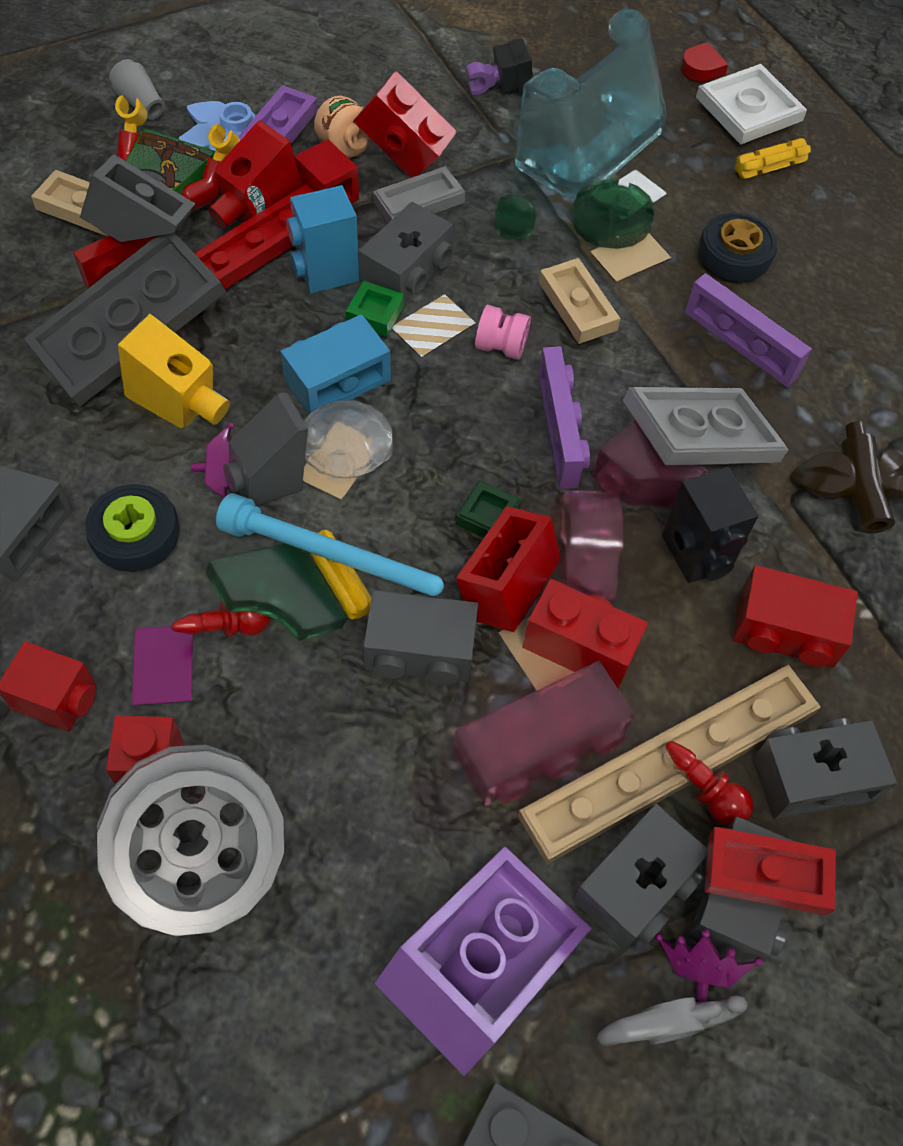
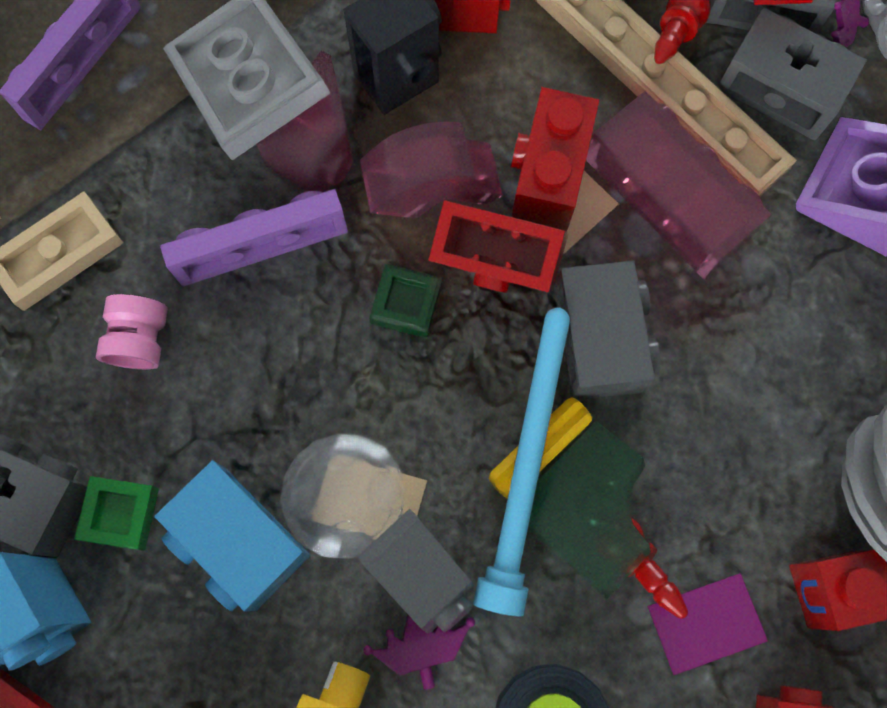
camera: 100 degrees left, 15 degrees up
(433, 325) = (120, 435): sticker -> none

